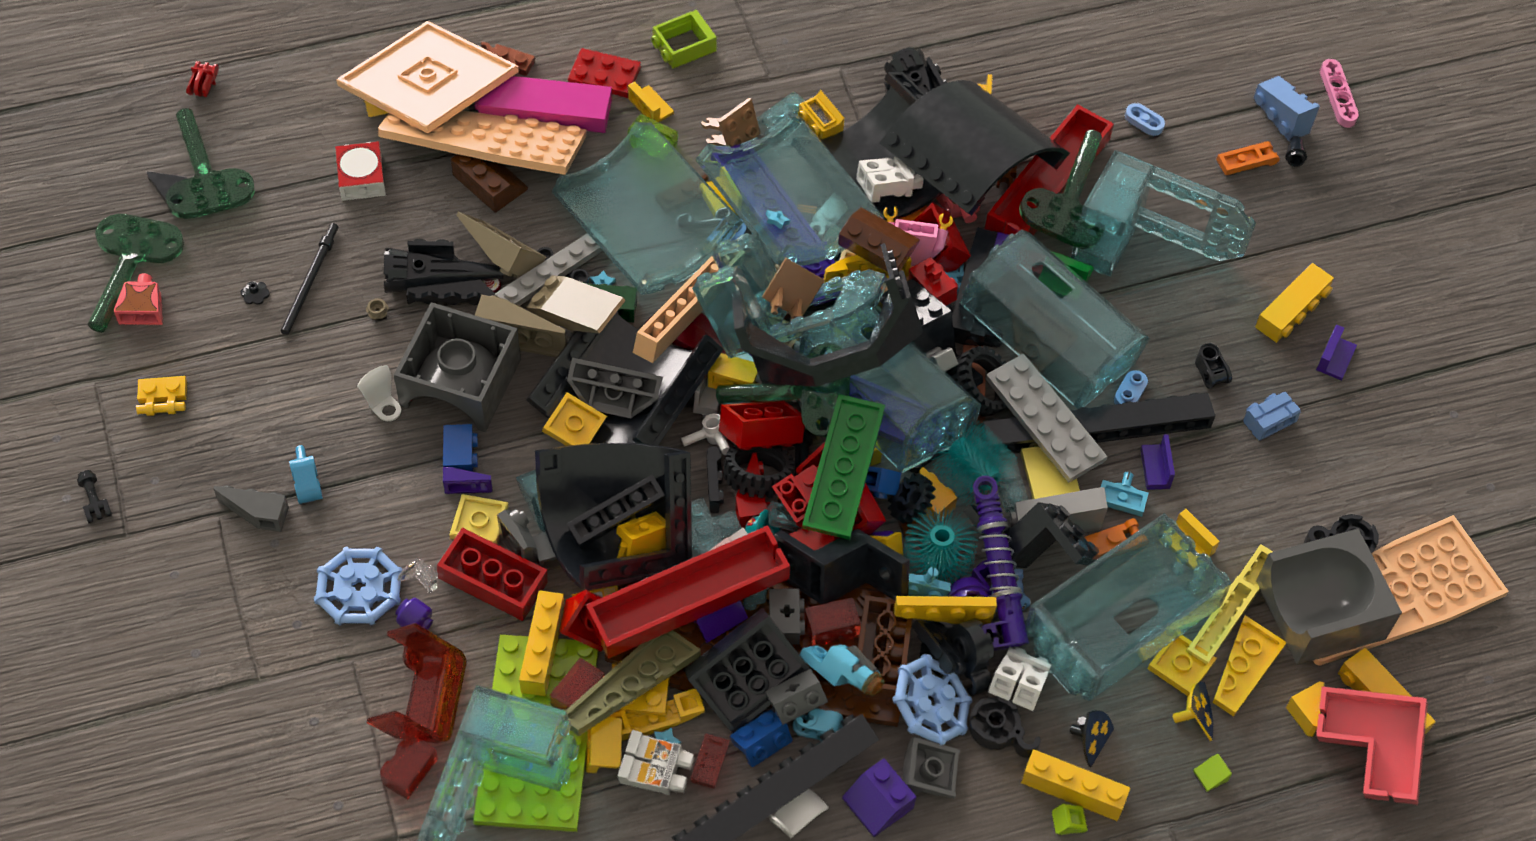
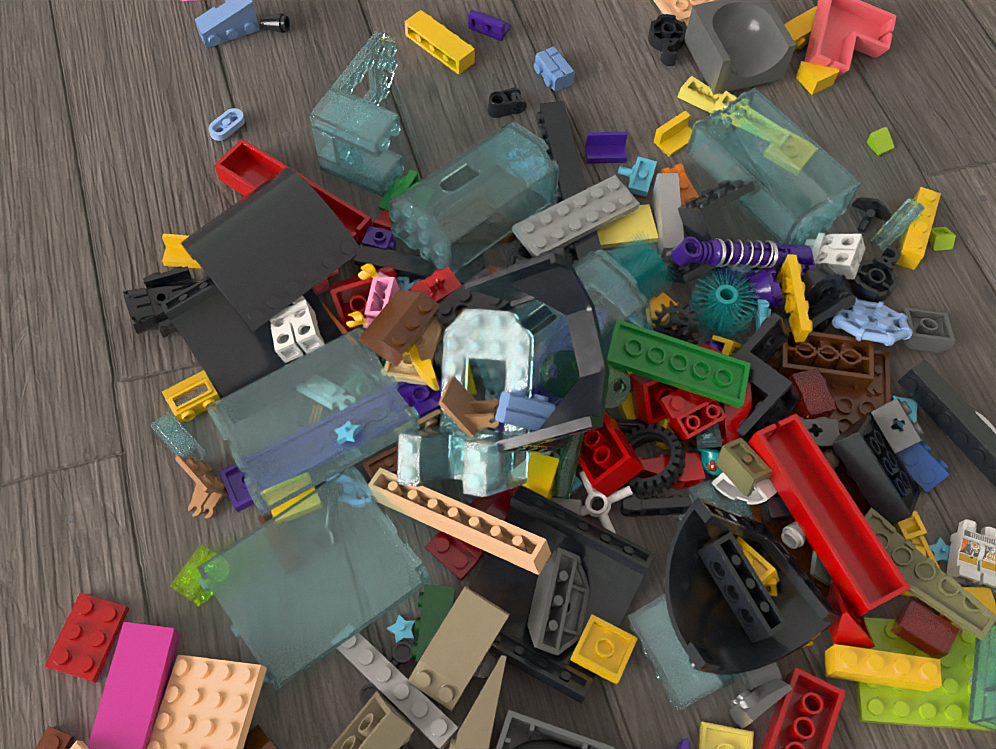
camera: 90 degrees left, 5 degrees up
(649, 102) = (144, 581): yellow panel -> none
(680, 25) = (42, 522): lime window -> none
(709, 761) = (955, 508): clear red plate -> none
(741, 527) = (742, 466): none -> olive panel
(781, 320) = (523, 411): none -> medium blue brick
(844, 666) = (864, 385): medium azure plate -> none
(879, 798) = (963, 367): dark purple slope -> none
(1061, 213) = (349, 185): clear green piece -> none
(1071, 752) = (897, 224): none -> clear light blue hinge
(1198, 707) = (836, 147): shield -> none
(1247, 158) = (280, 57): orange plate -> none
(1247, 663) = (801, 115): yellow wing -> none

